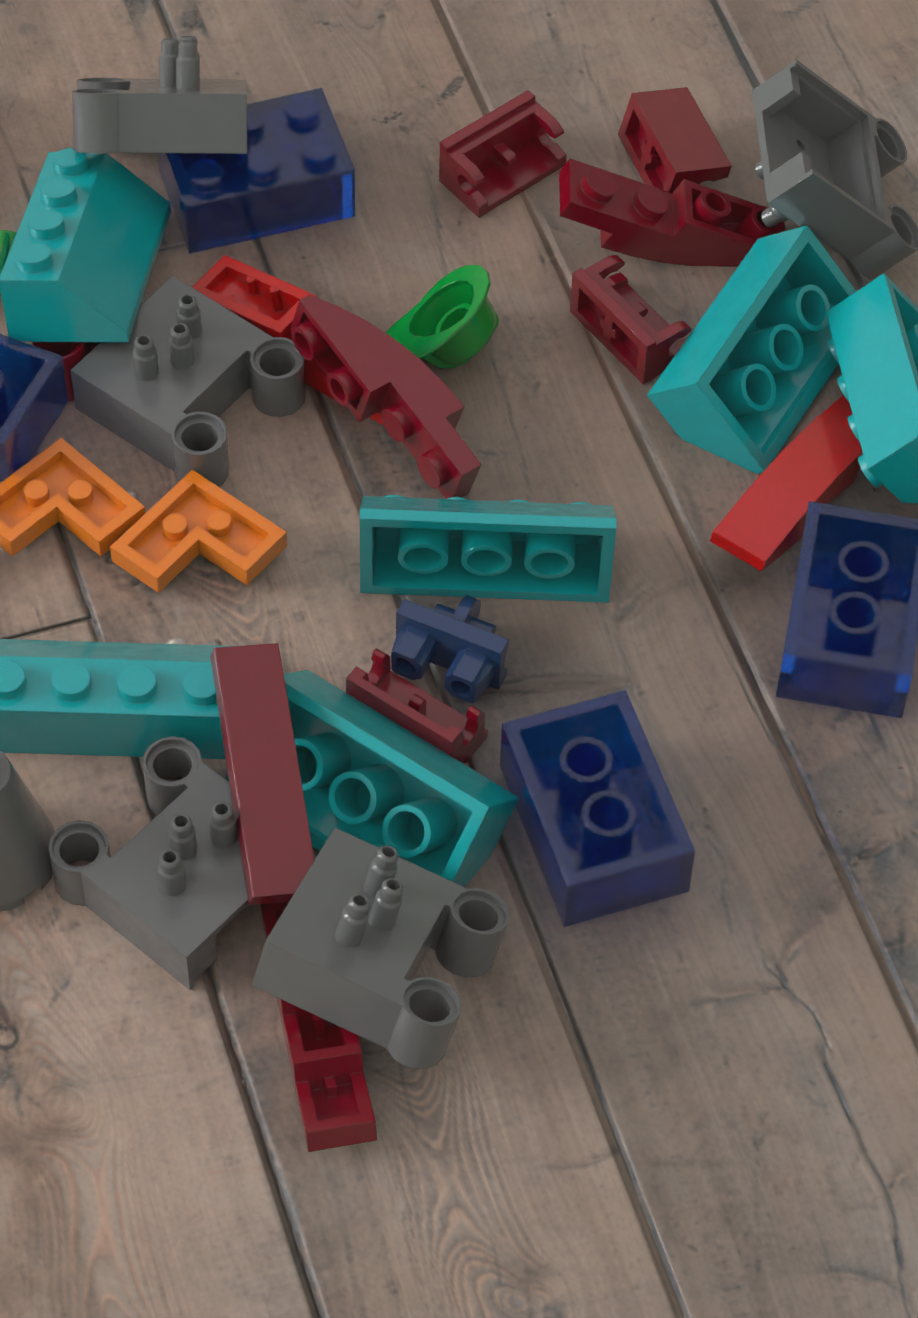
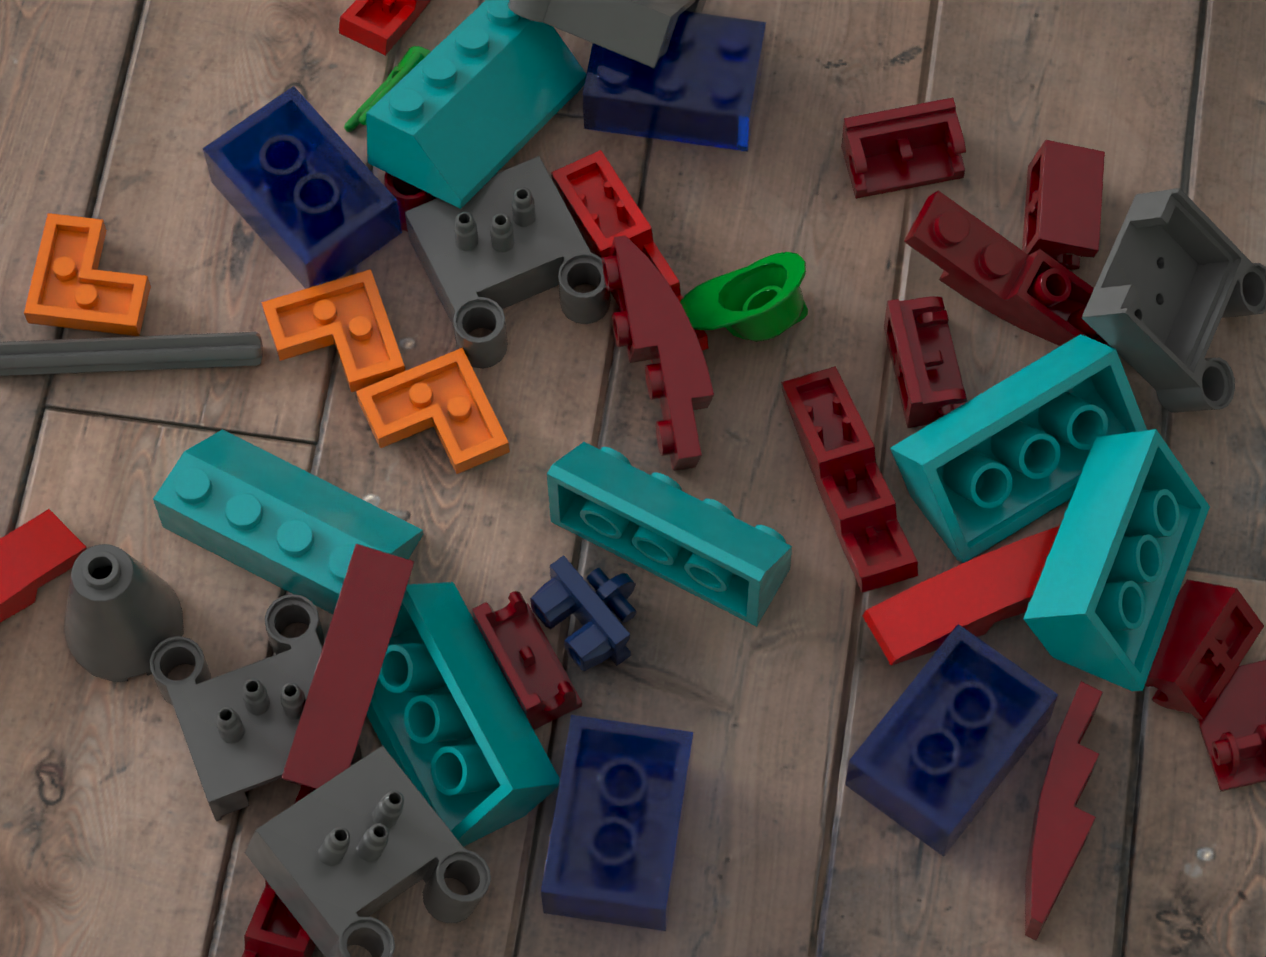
camera: 30 degrees right, 10 degrees up
(627, 447) = (849, 479): none -> dark red slope

